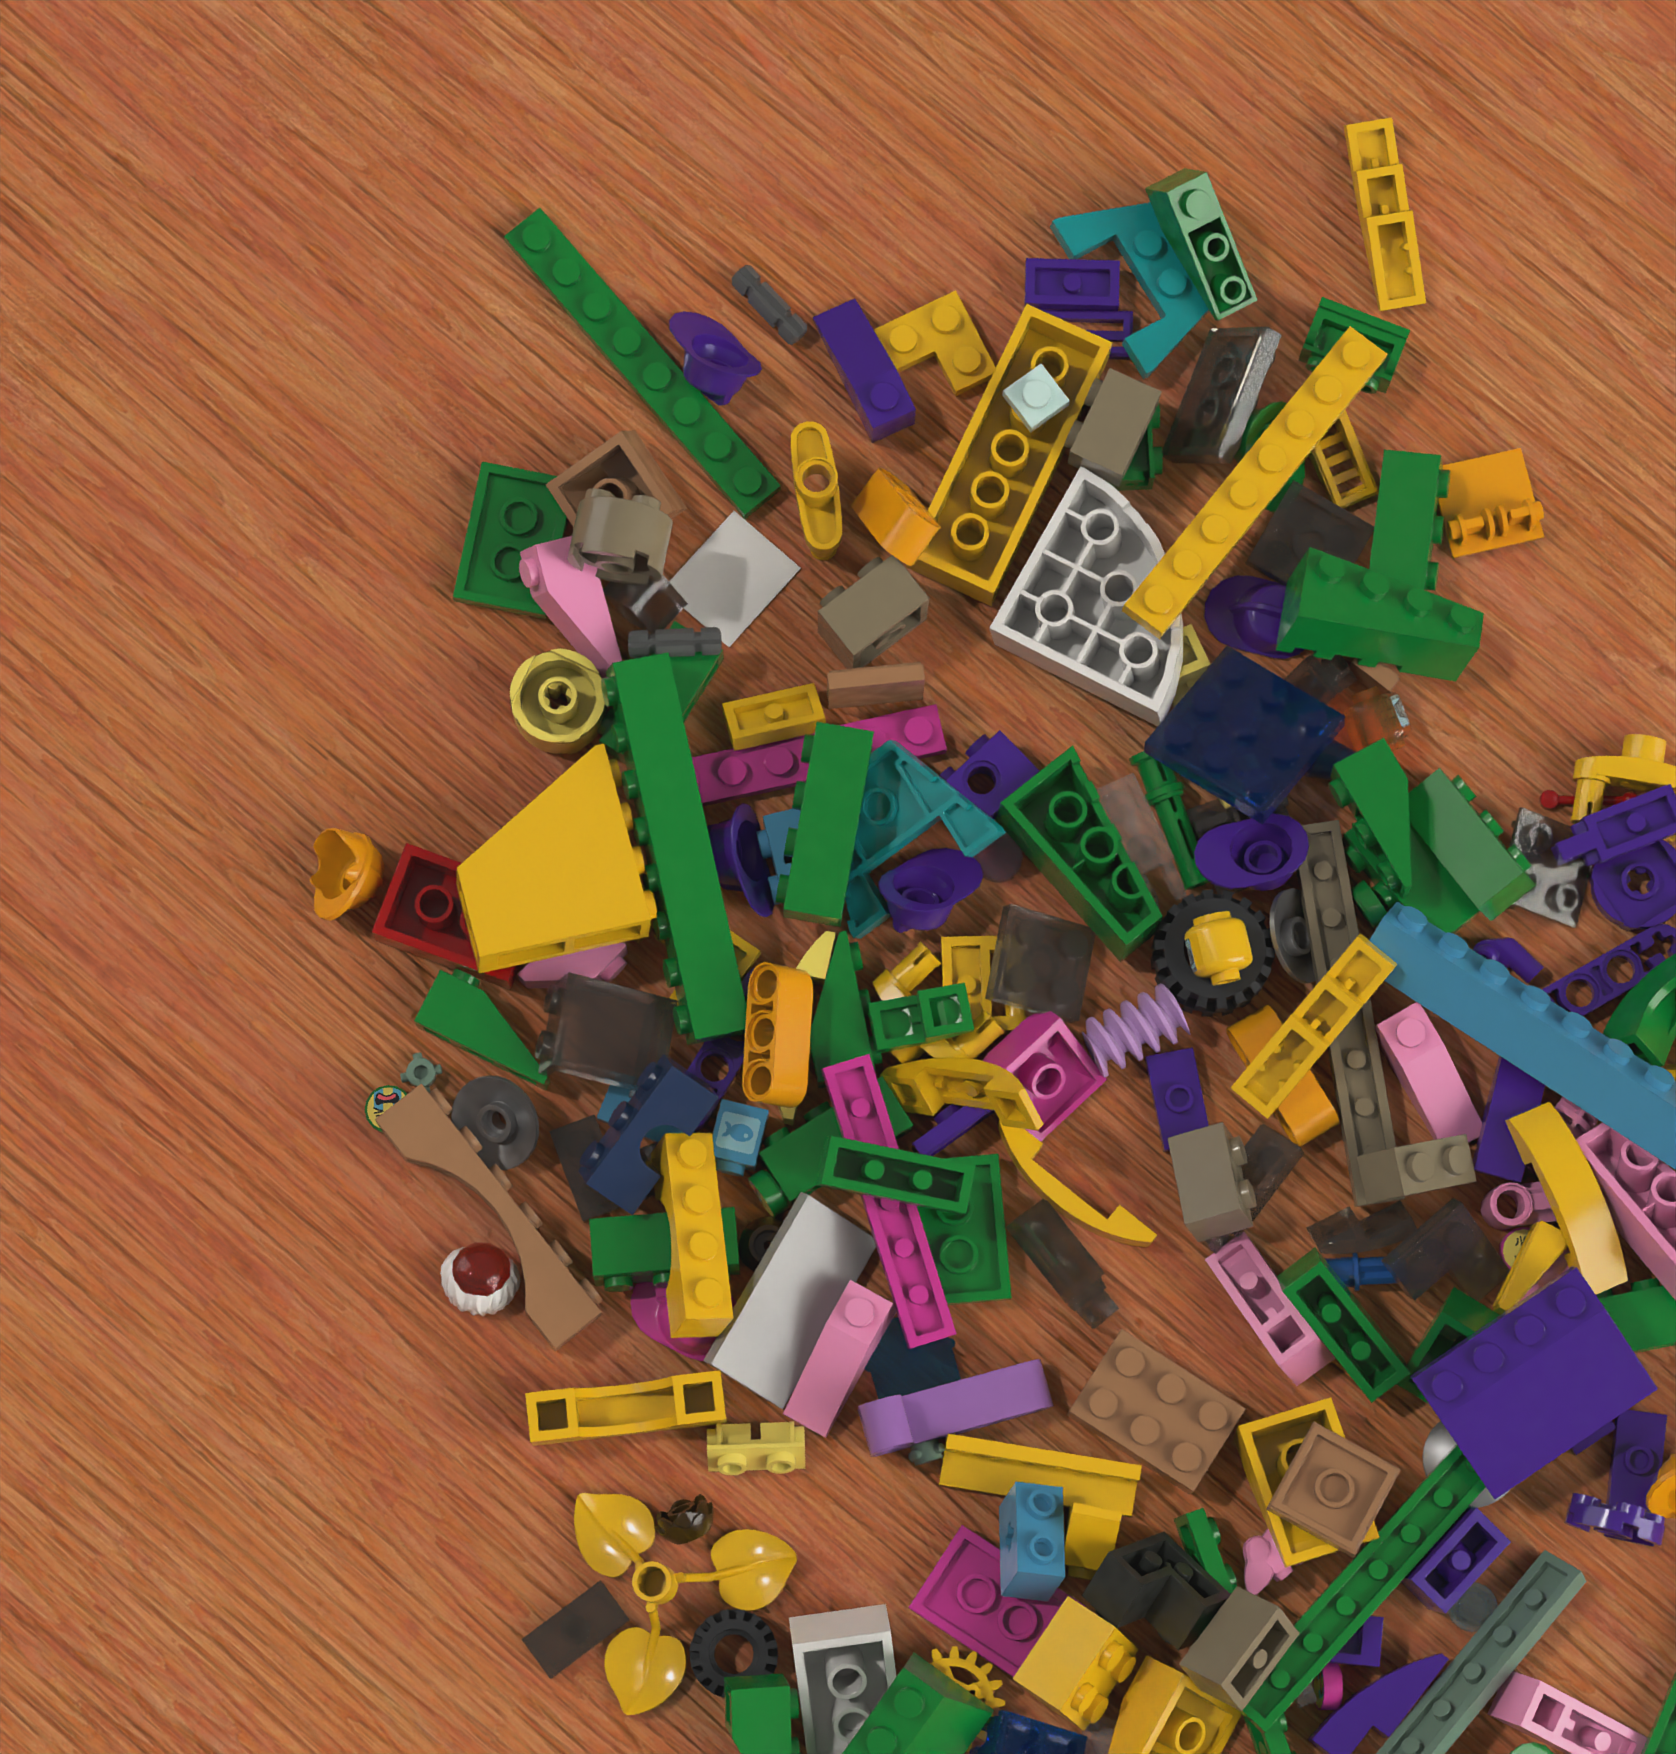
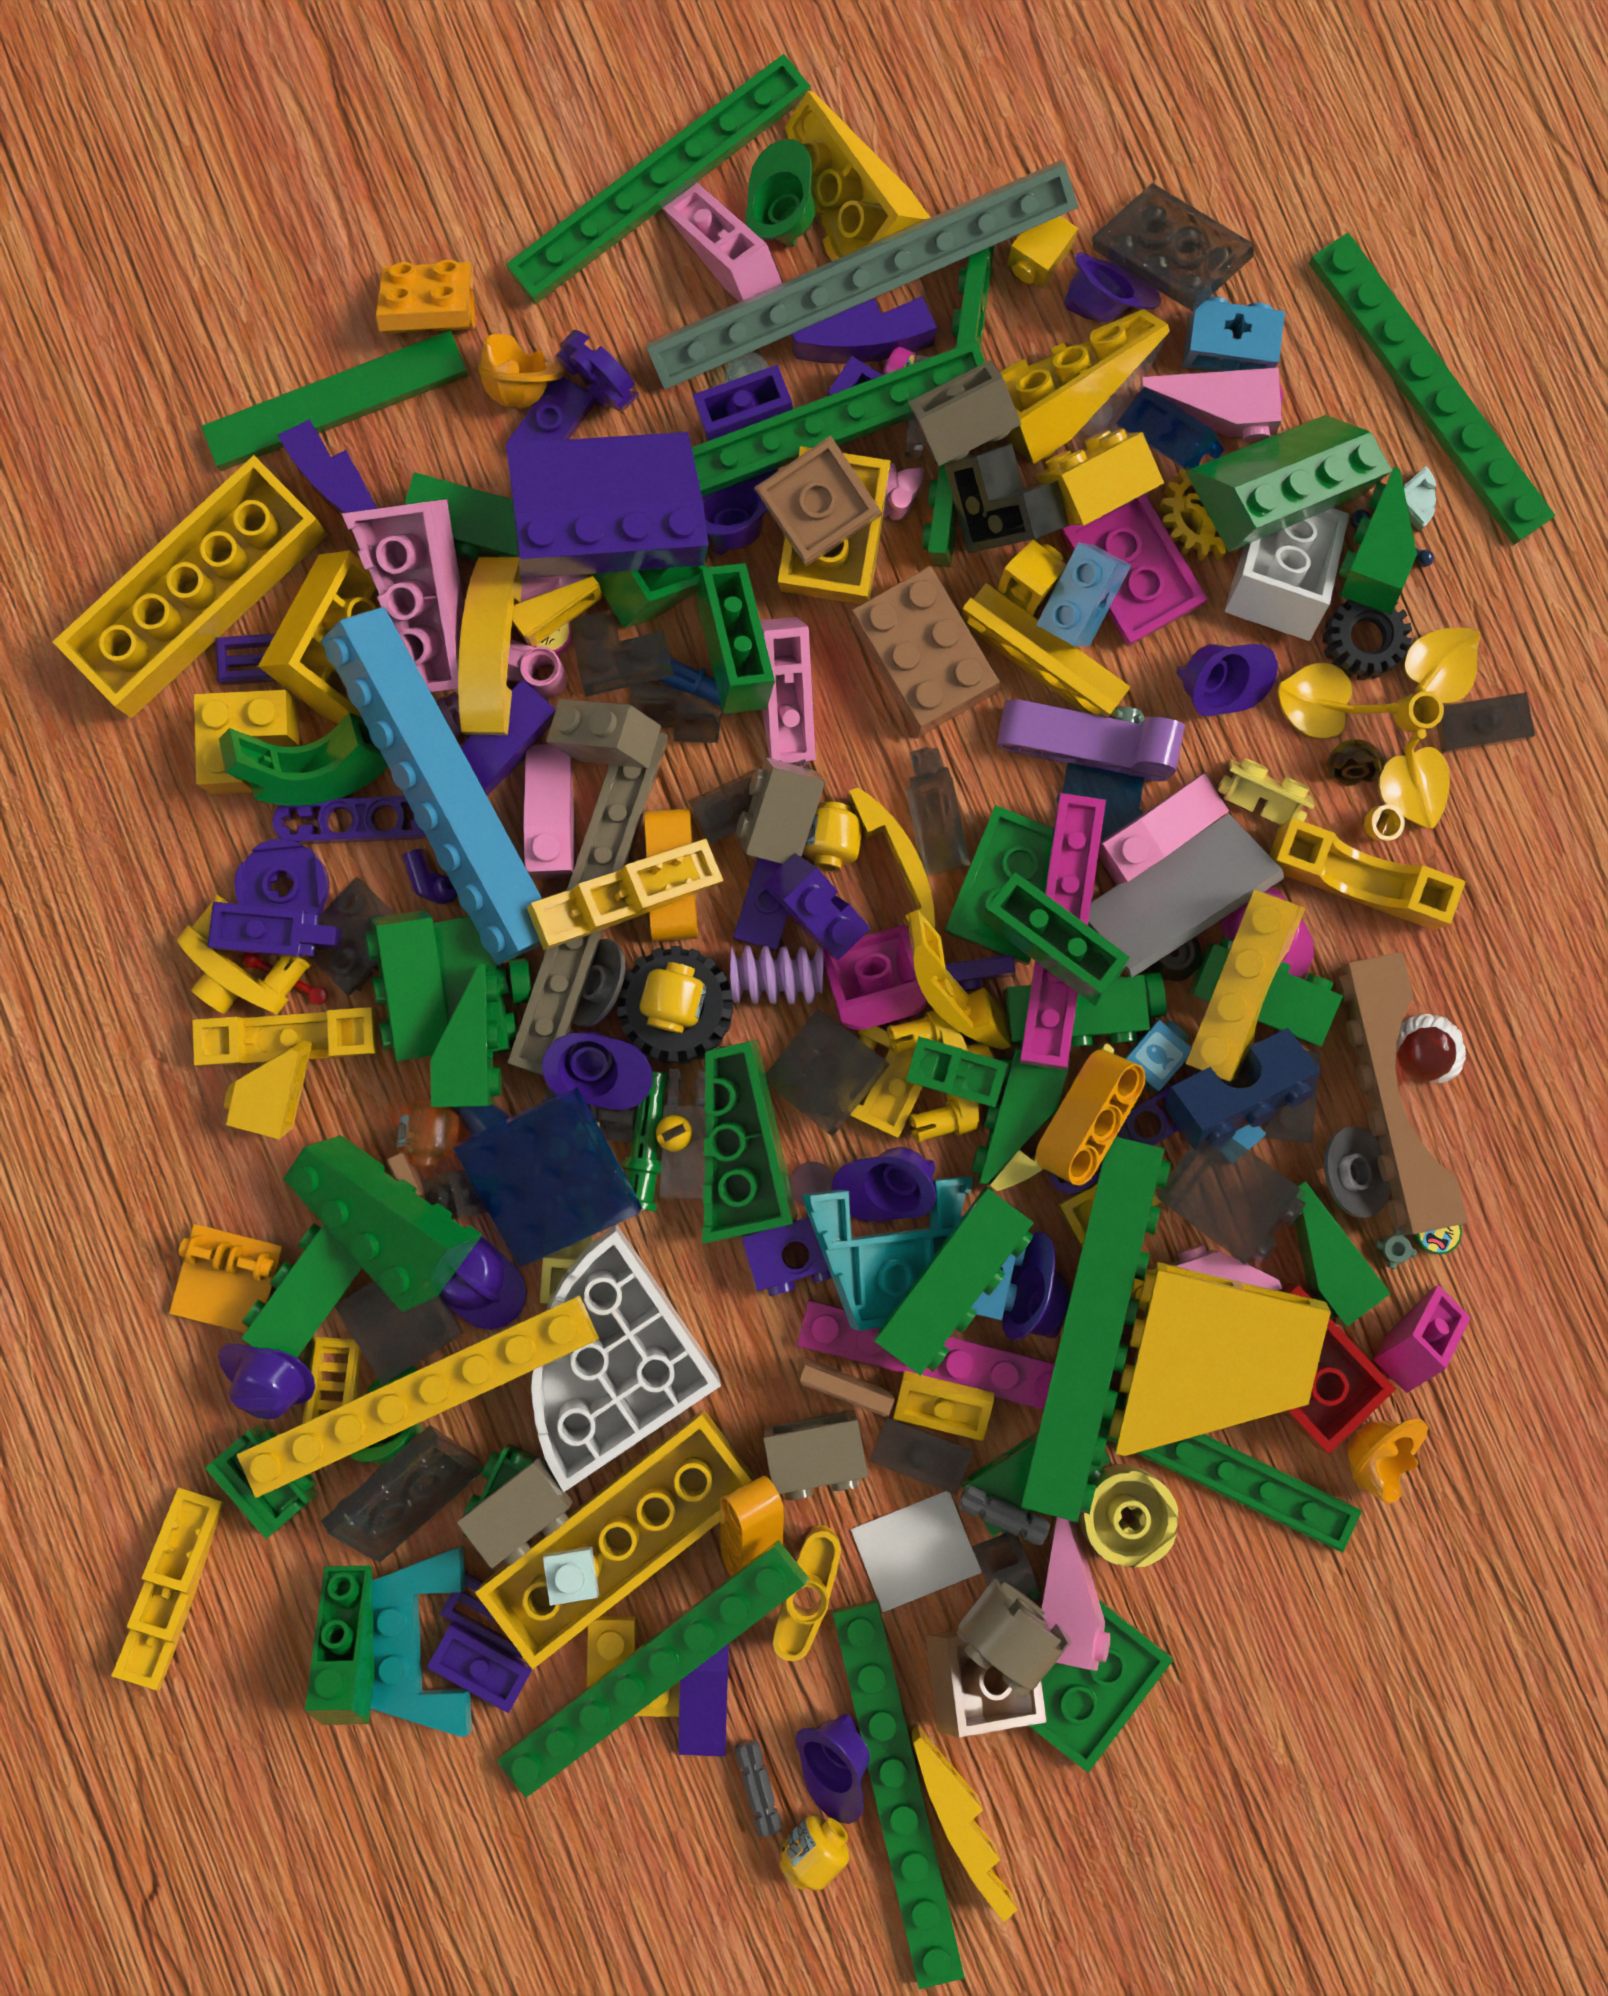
camera: 155 degrees left, 5 degrees up
(358, 999) = (1423, 1340): none -> dark pink slope
(446, 790) = (1255, 1485): none -> green tile
(587, 375) = (956, 1809): none -> yellow slope
(619, 1474) = (1390, 825): none -> yellow hinge
(692, 275) = (814, 1853): none -> yellow head
(772, 663) = (921, 1455): none -> clear smoke plate
(850, 1536) = (1228, 677): none -> dark purple piece
(920, 356) = (653, 1668): none -> green plate
(1130, 1106) = (815, 907): none -> dark purple brick
(1149, 1188) = (833, 837): none -> yellow head
(1159, 841) = (679, 1141): none -> yellow hinge
(1399, 430) = (265, 1380): none -> dark purple piece
(1416, 1446) = (735, 515): none -> dark purple piece
(1541, 684) = (269, 1095): none -> yellow slope
(1556, 743) = (262, 1038): none -> yellow slope

